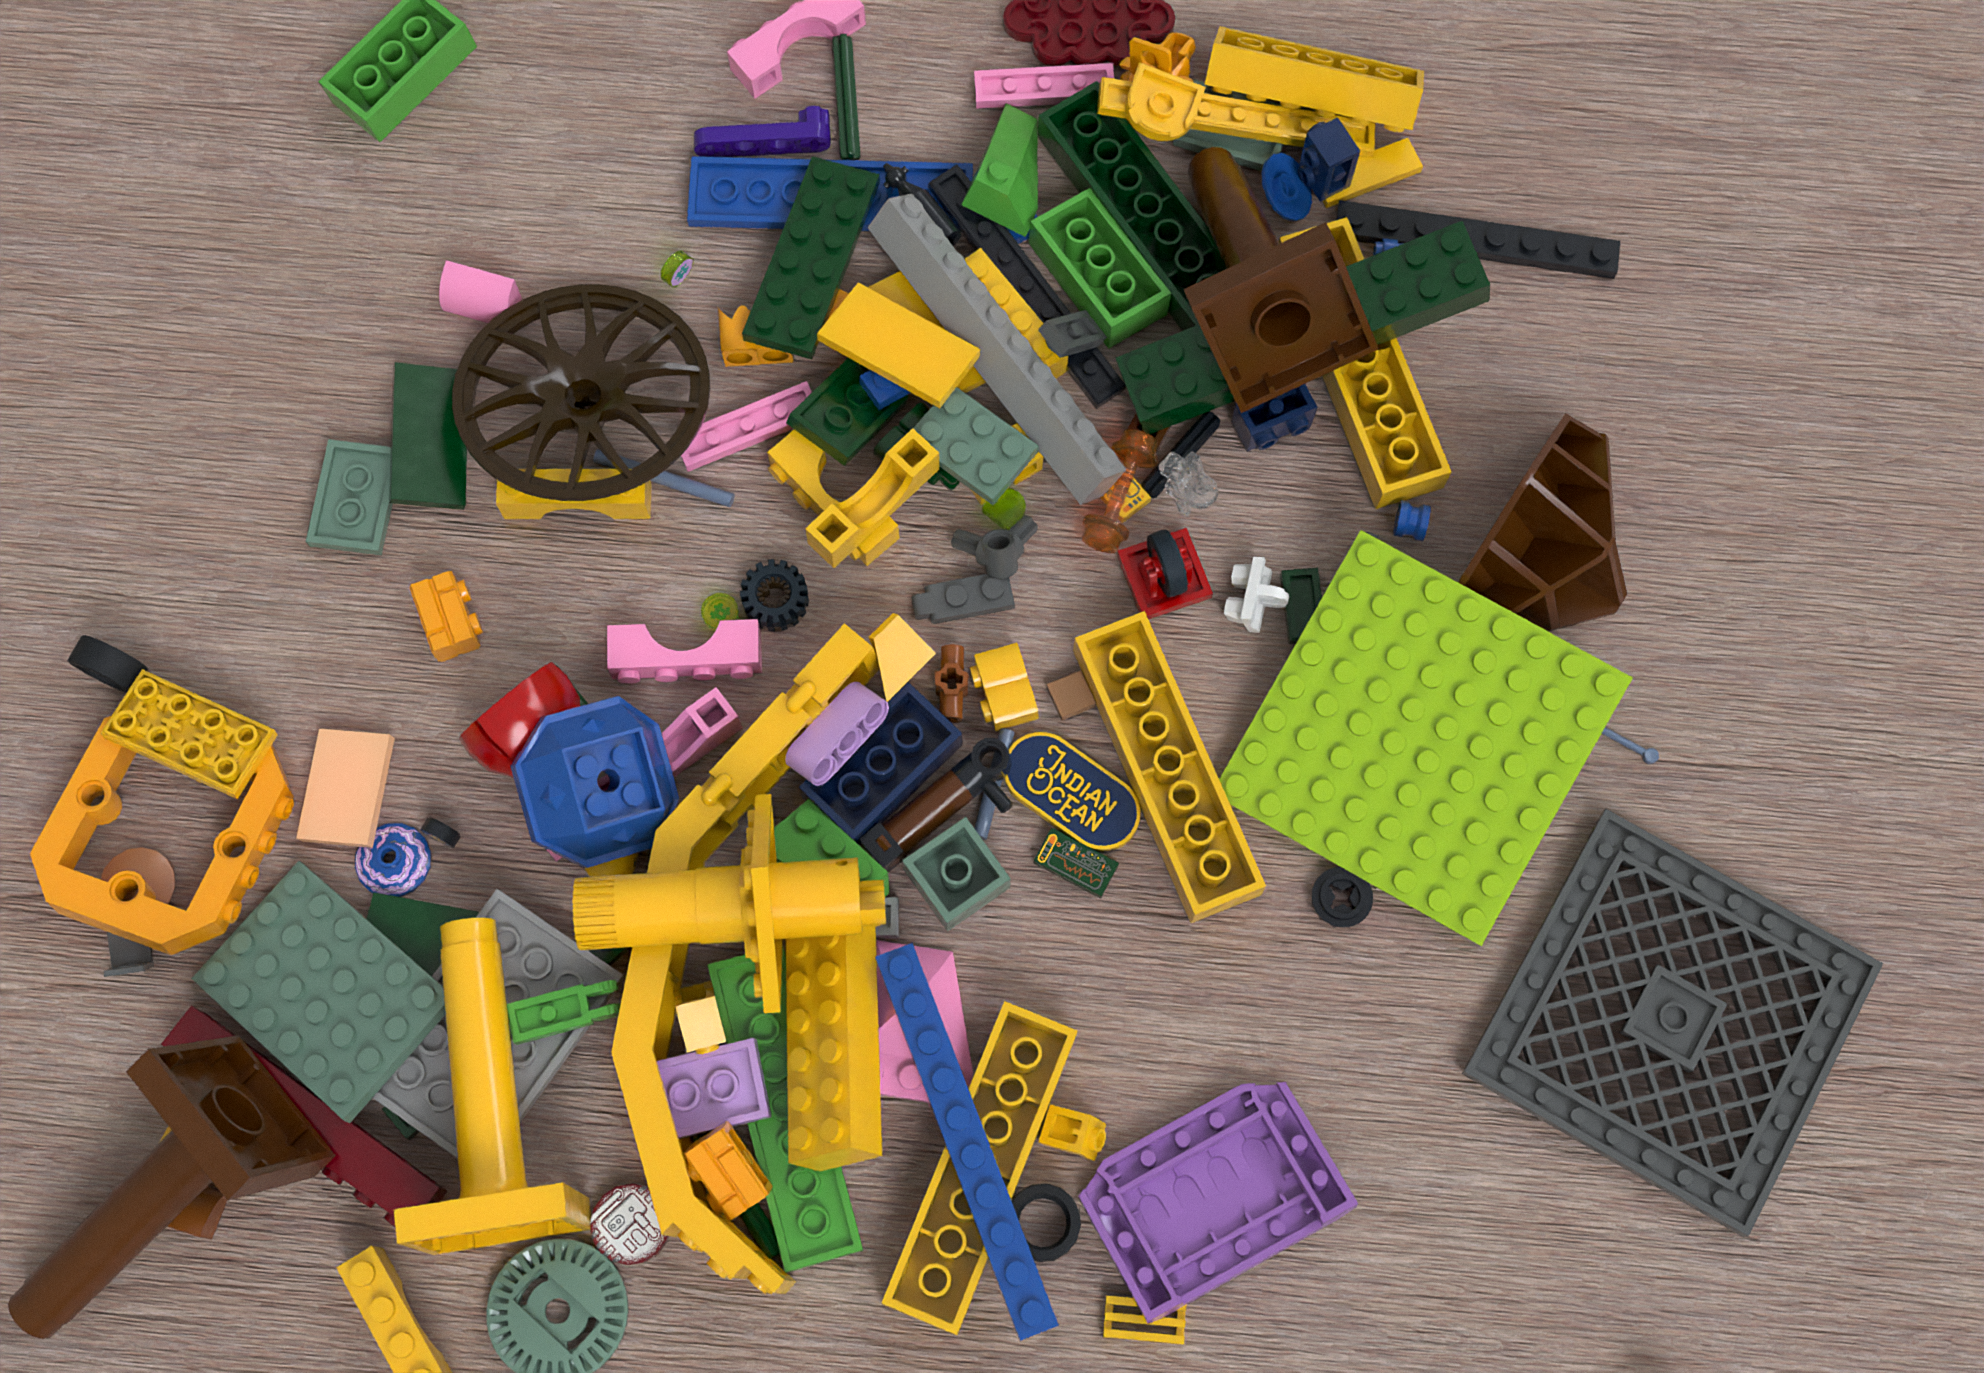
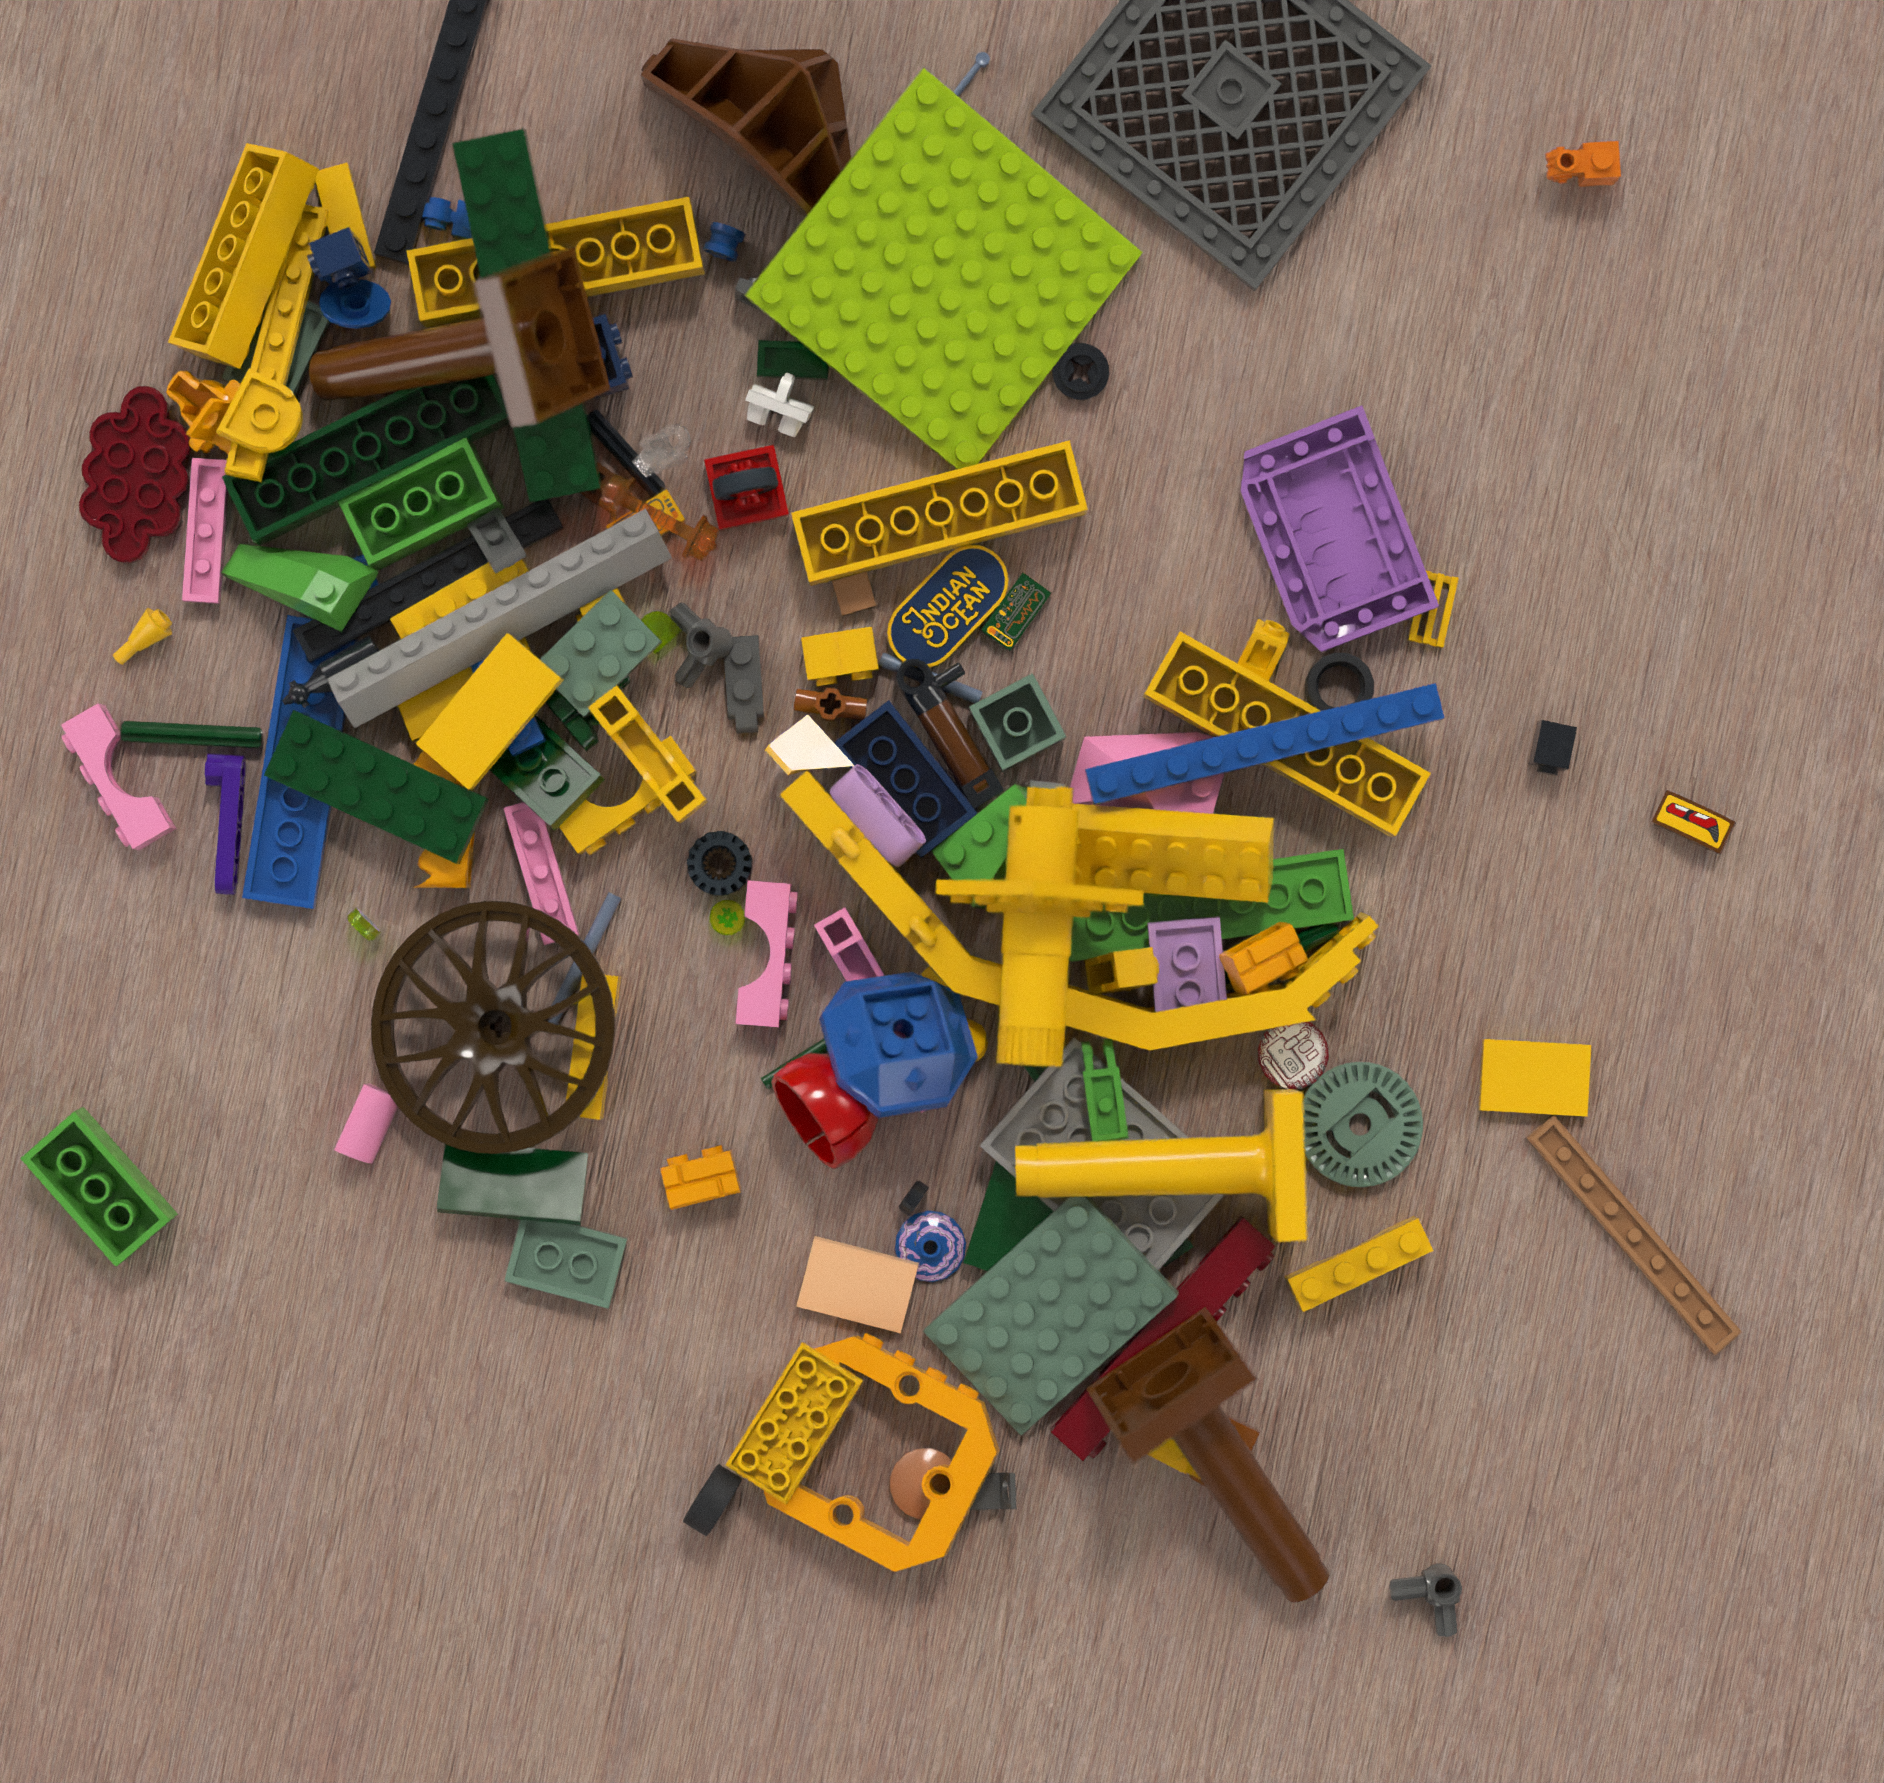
camera: 85 degrees left, 15 degrees up
(943, 49) = (149, 630): none -> yellow cone

